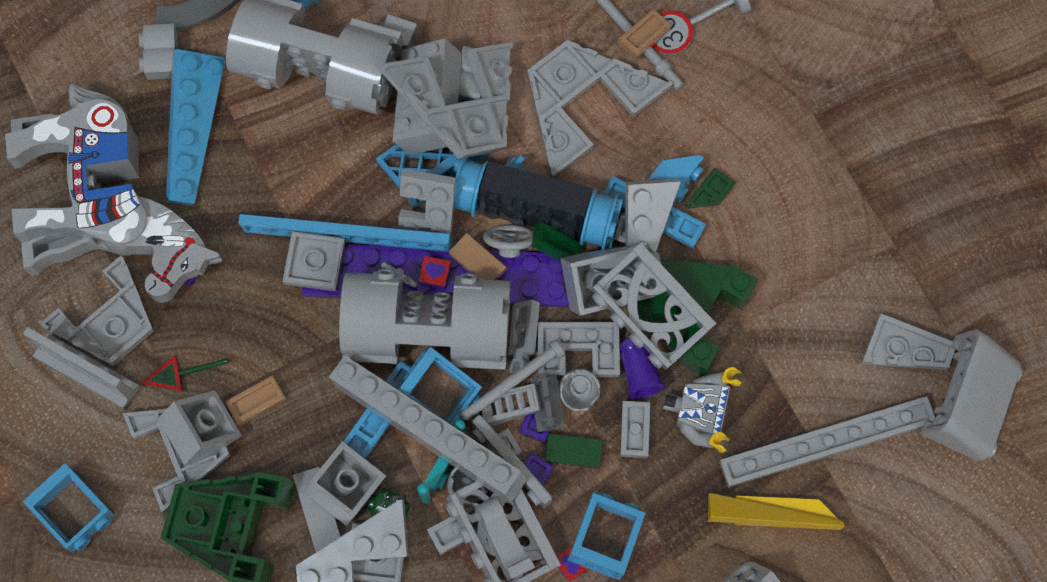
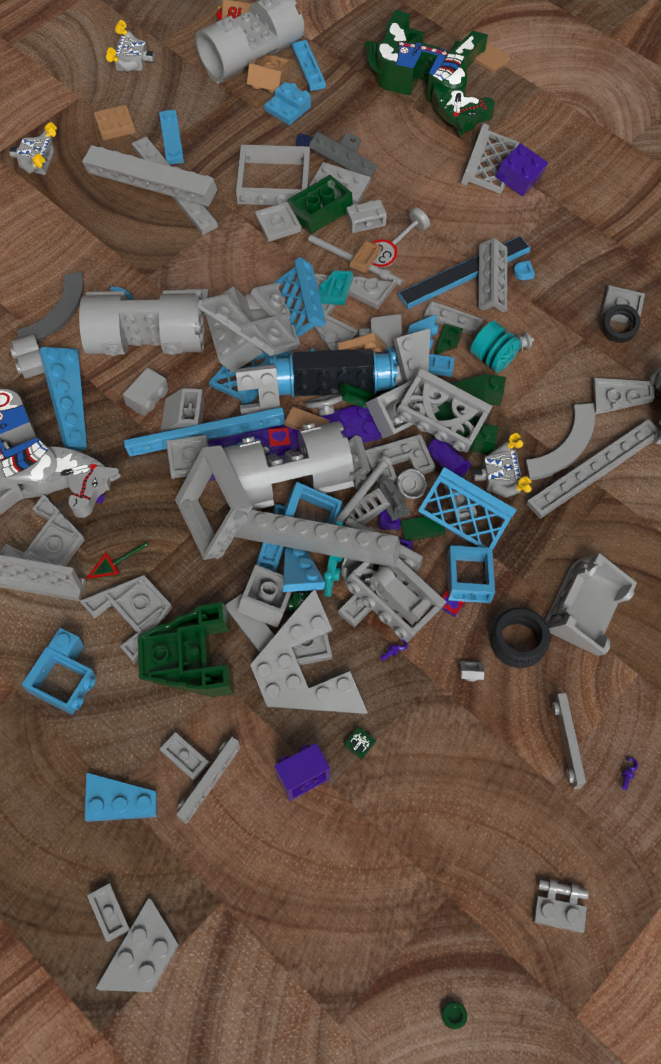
camera: 20 degrees left, 10 degrees down
(89, 467) = (66, 644): none -> dark azure brick
(198, 426) = (141, 589): light grey slope -> none
(255, 400) = (177, 564): medium nougat tile -> none
(291, 149) = (146, 392): none -> light grey brick
(327, 195) = (183, 409): none -> light grey slope
(328, 300) = (212, 461): none -> light grey window
(394, 468) = (300, 572): none -> dark azure wing
(542, 77) = (309, 295): none -> dark azure fence
(582, 74) = (336, 288): none -> teal wing
(586, 177) = (368, 341): none -> medium nougat plate
(626, 157) = (385, 327): none -> light grey torso
(655, 437) = (479, 498): none -> dark azure fence
(729, 161) = (448, 315): none -> light grey tile
(762, 225) = (495, 346): none -> teal wheel
(772, 95) = (455, 276): none -> black tile
(772, 512) = (578, 525): yellow wedge -> none
(802, 113) = (490, 274): none -> light grey fence
(806, 228) = (526, 341): none -> light grey wheel
(809, 403) = (570, 450): none -> light grey tile
(854, 118) = (524, 271): none -> dark azure tile
(963, 227) = (625, 310): none -> black tyre
(969, 213) = (617, 296): none -> light grey tile

